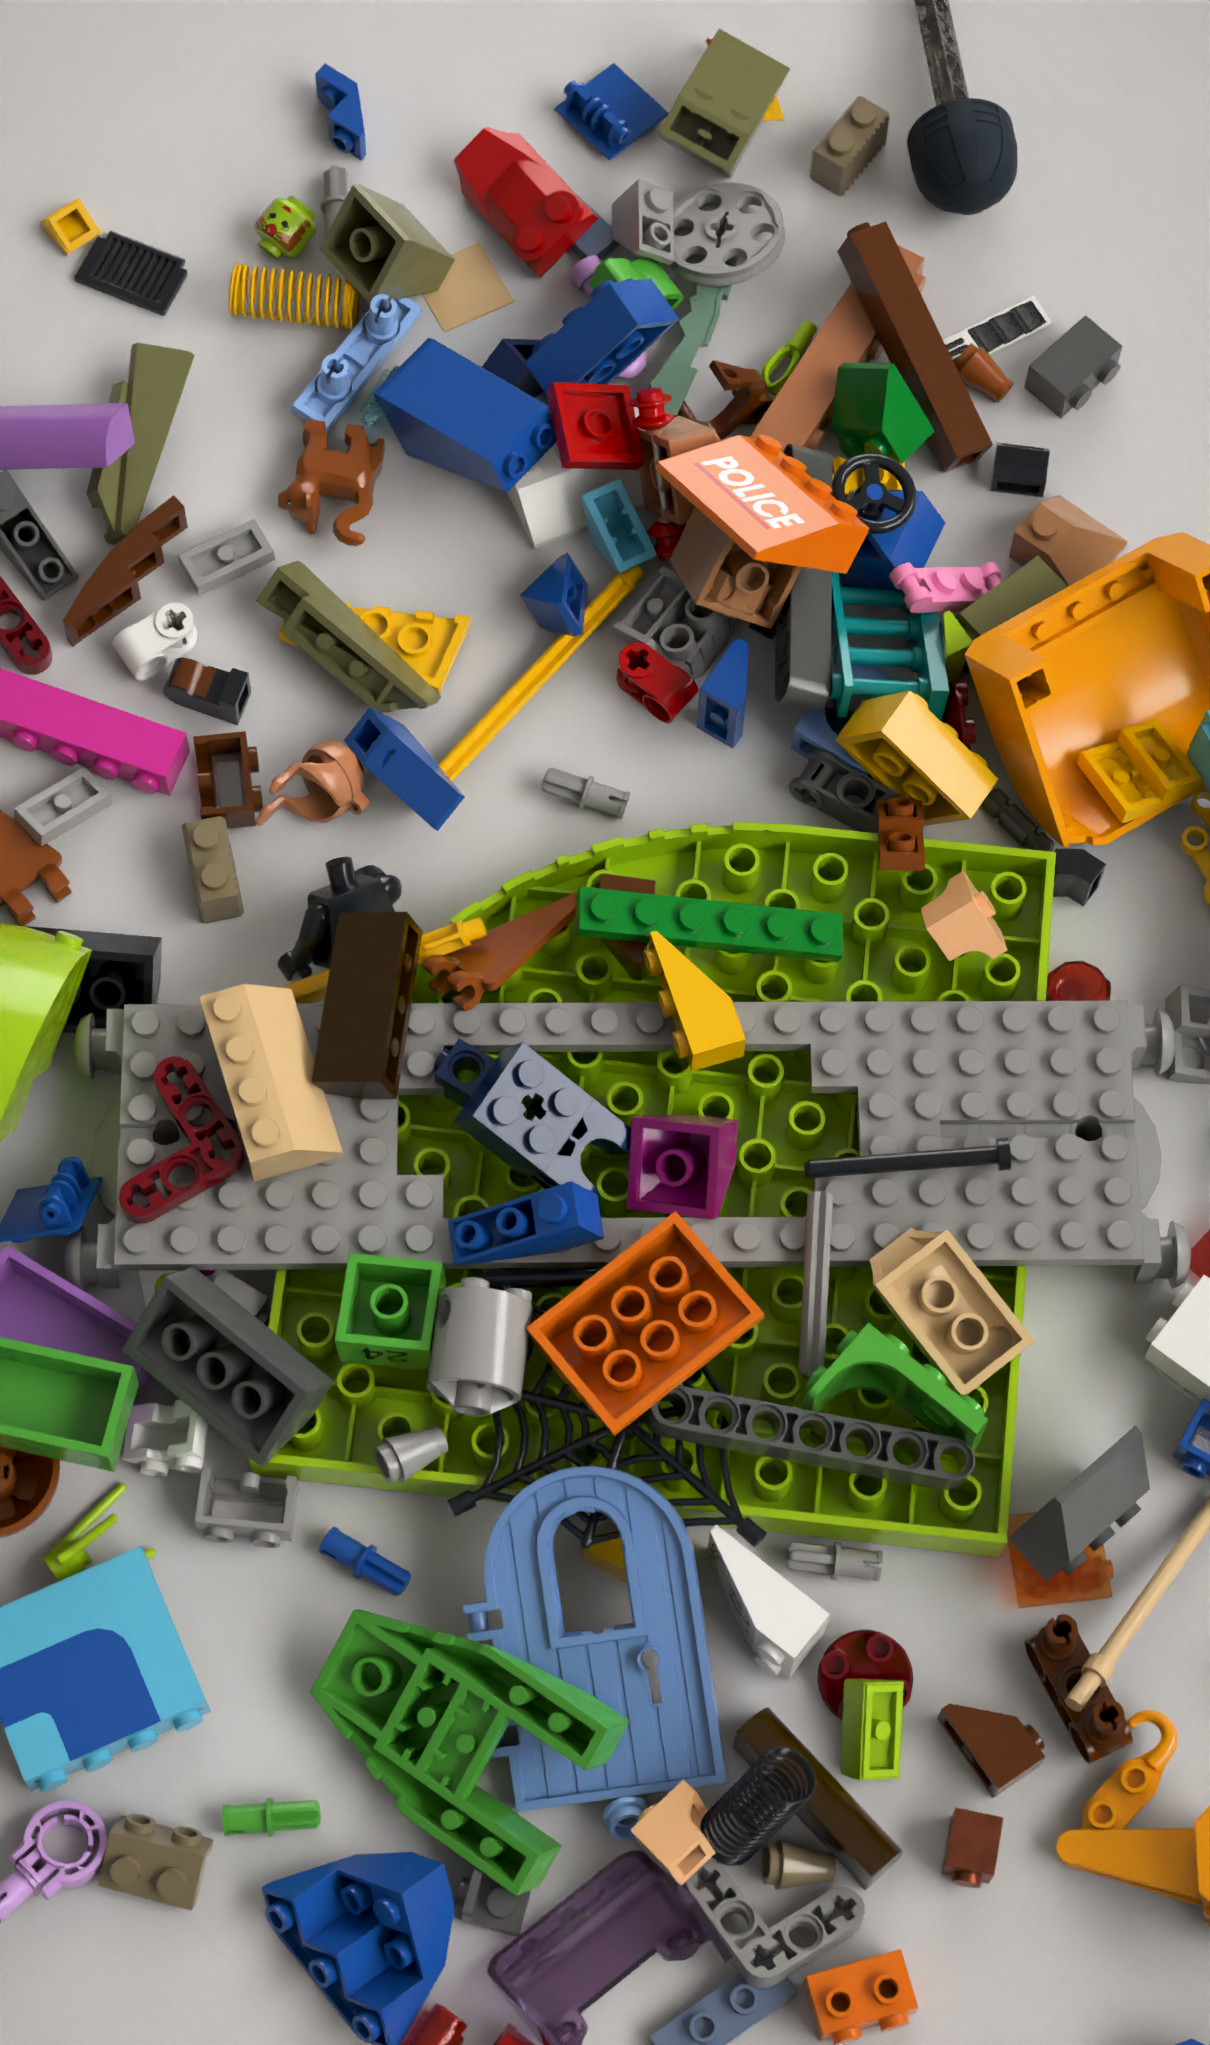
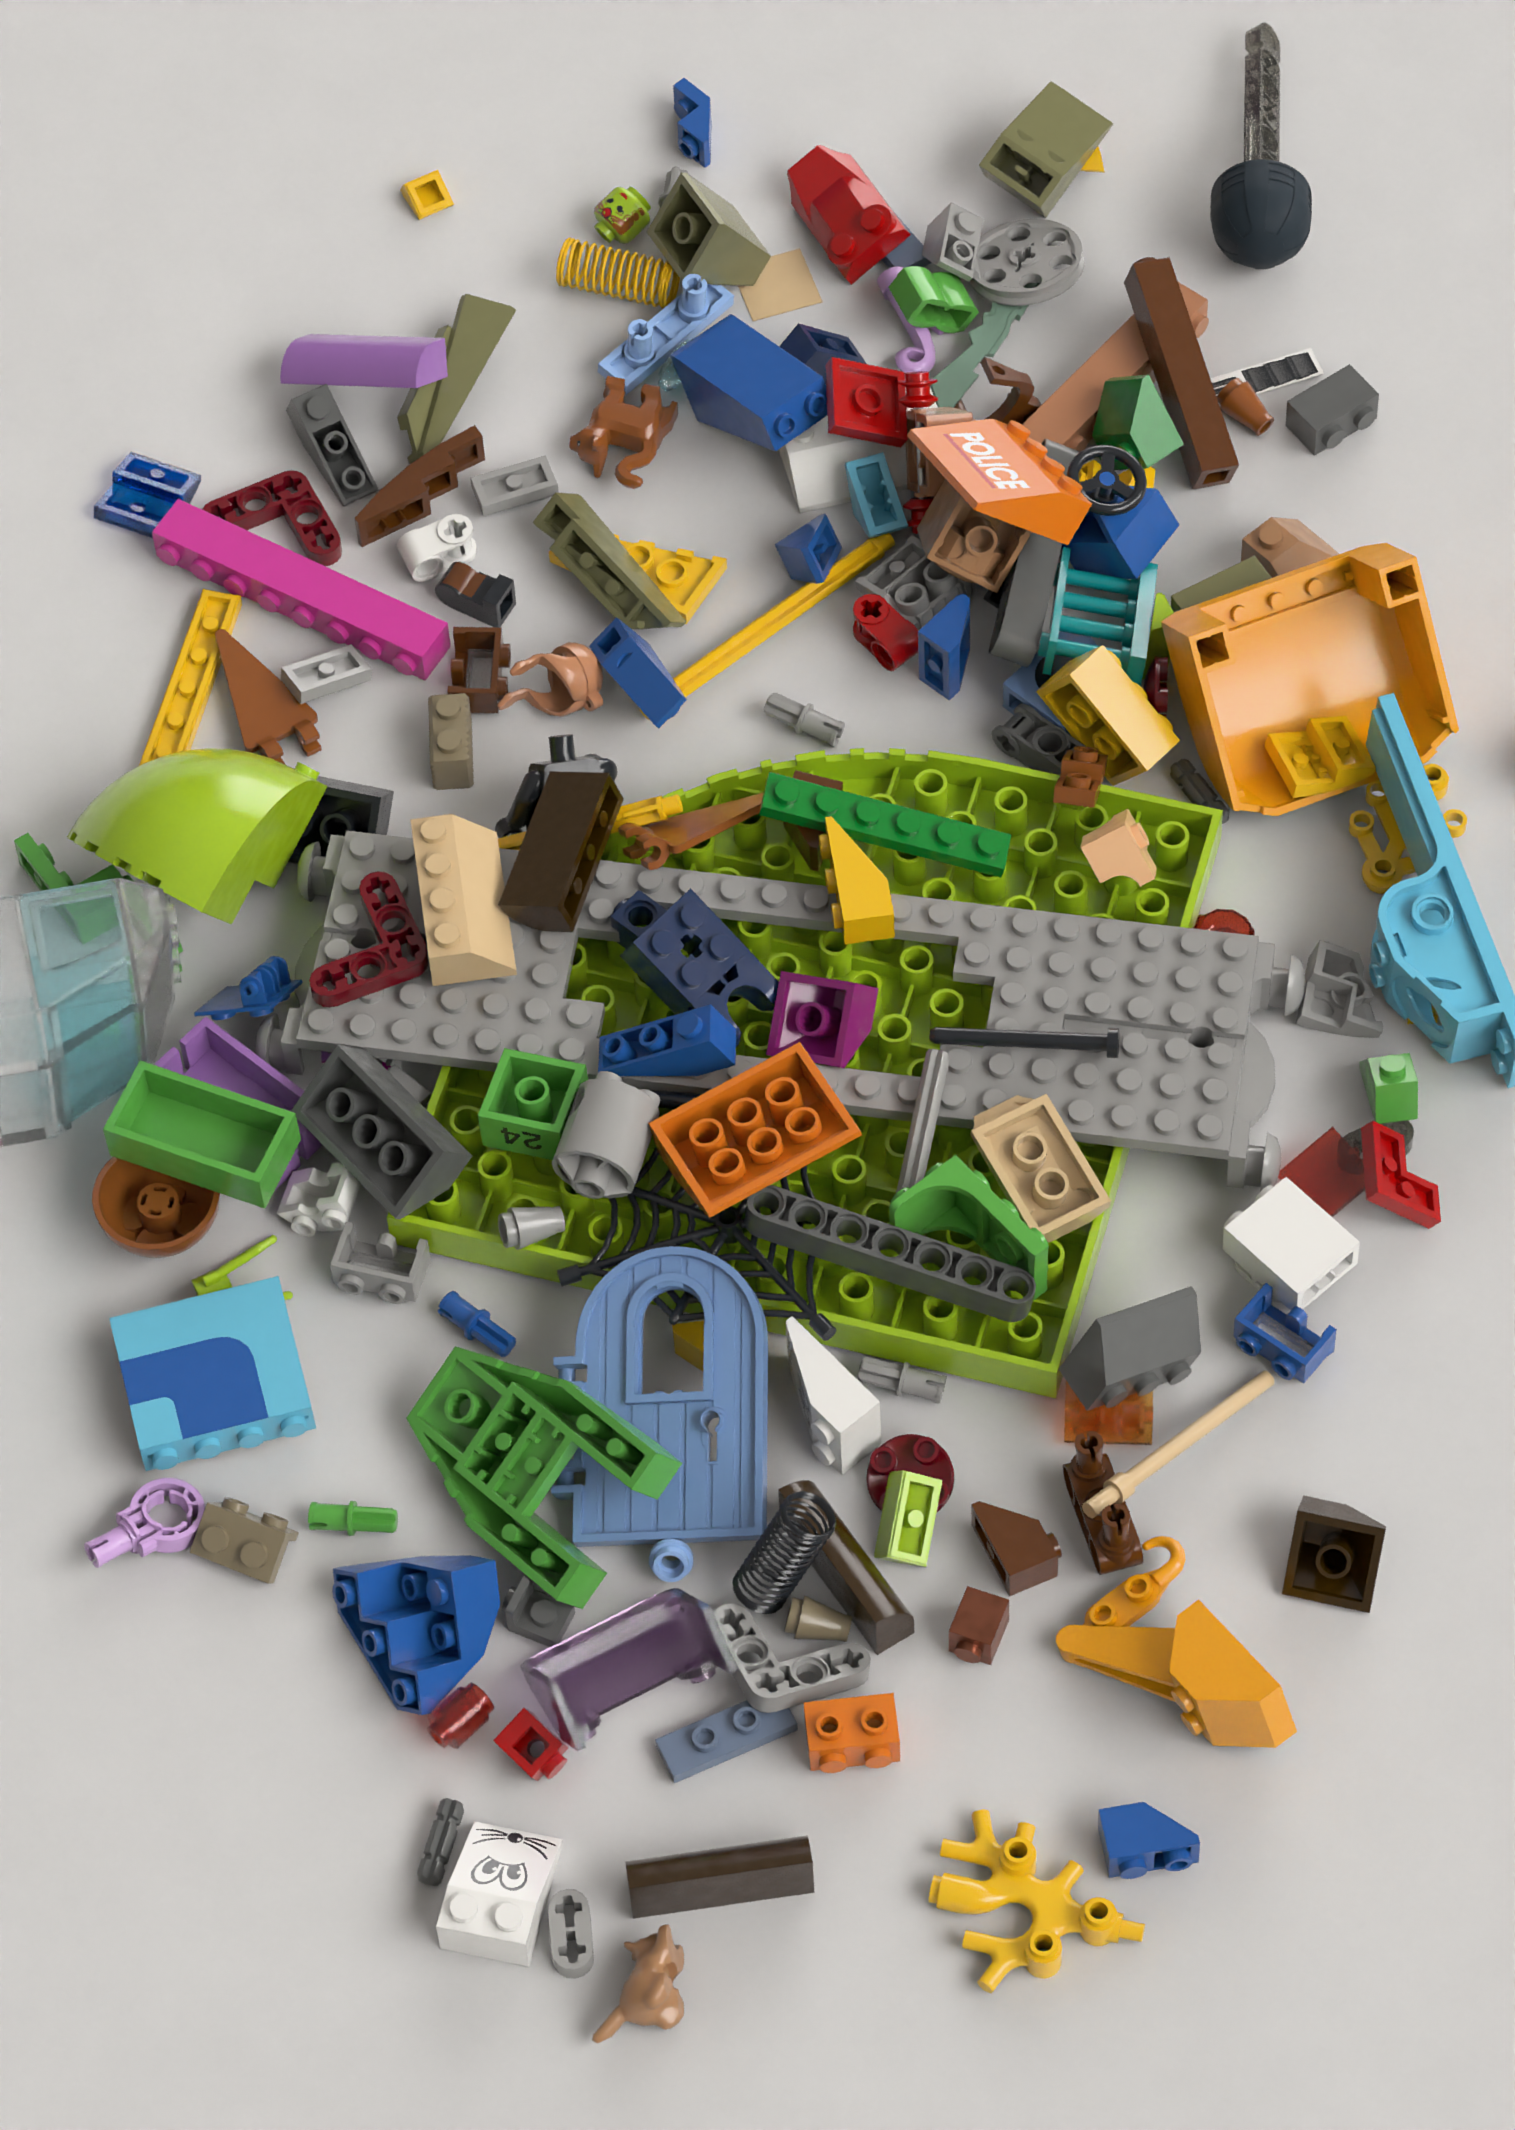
camera: 15 degrees right, 10 degrees down
(133, 272) = (476, 240): black window -> none
(603, 334) = (892, 324): blue brick -> none
(610, 110) = (941, 147): blue hinge -> none
(673, 1833) = (708, 1567): light nougat brick -> none
(793, 349) = (1067, 368): lime piece -> none
(849, 146) = (1159, 199): dark tan brick -> none
(945, 587) = (1153, 575): bright pink plate -> none
(1020, 469) = (1263, 493): black piece -> none
(1077, 874) = (1243, 838): black piece -> none

